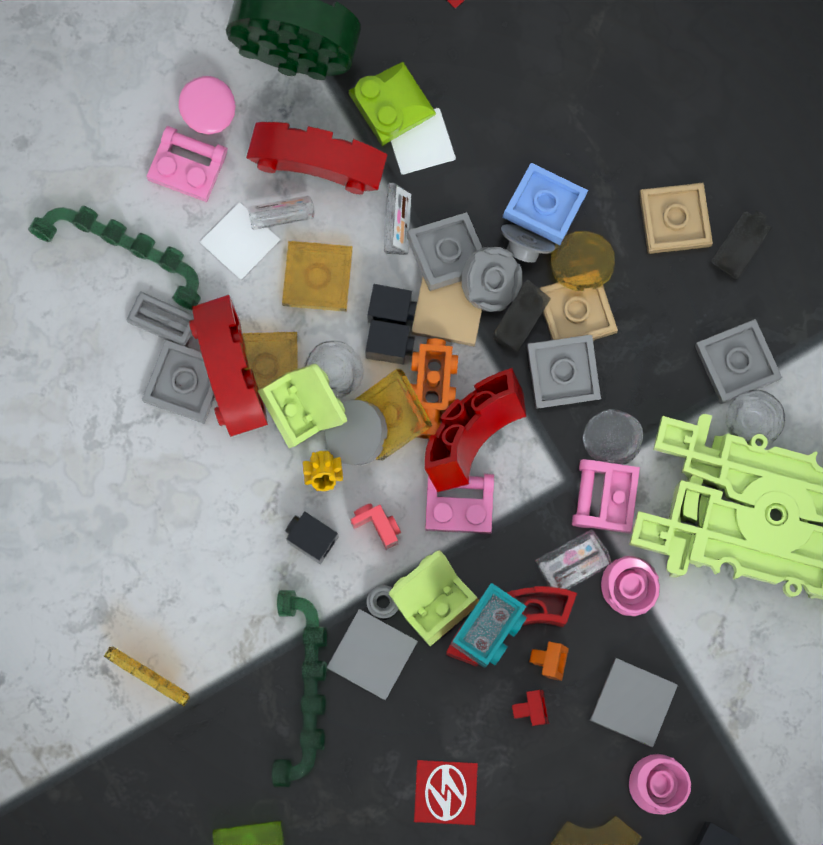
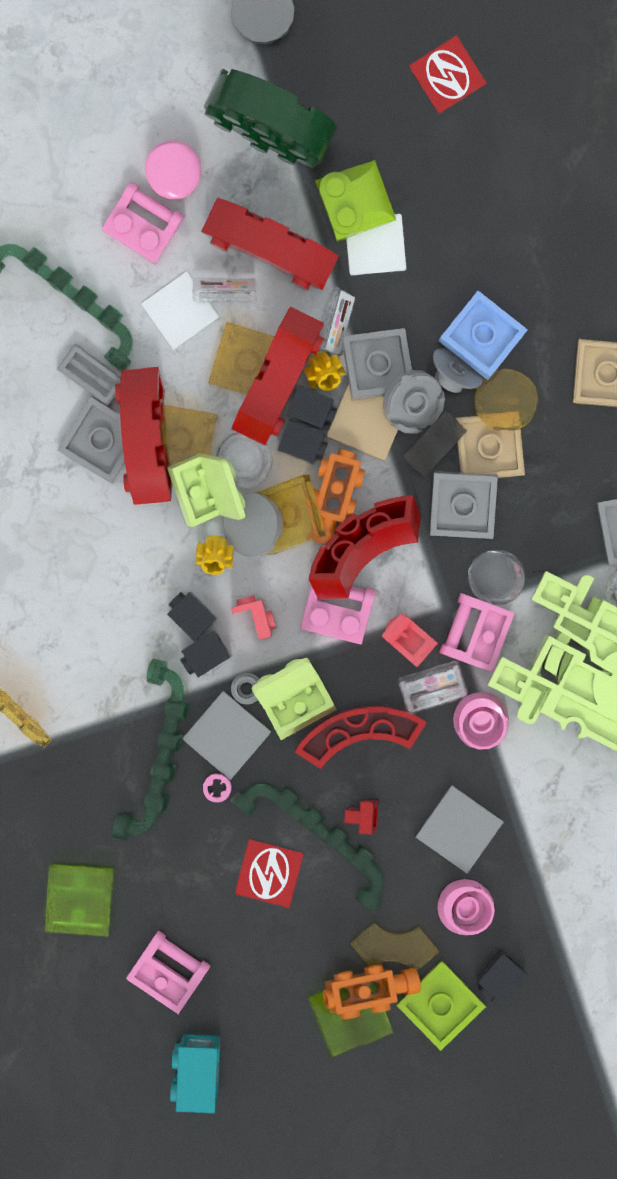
camera: 15 degrees right, 10 degrees up
(333, 574) = (204, 654): none -> black brick
(352, 277) = (278, 376): none -> red brick
(364, 706) = (224, 793): none -> bright pink bush
(396, 268) = (324, 371): none -> yellow gear
(489, 625) = (335, 742): piece -> none
(506, 740) = (312, 821): none -> clear green bar
(538, 516) = (408, 639): none -> coral bracket
(552, 660) = (391, 776): orange tile -> none

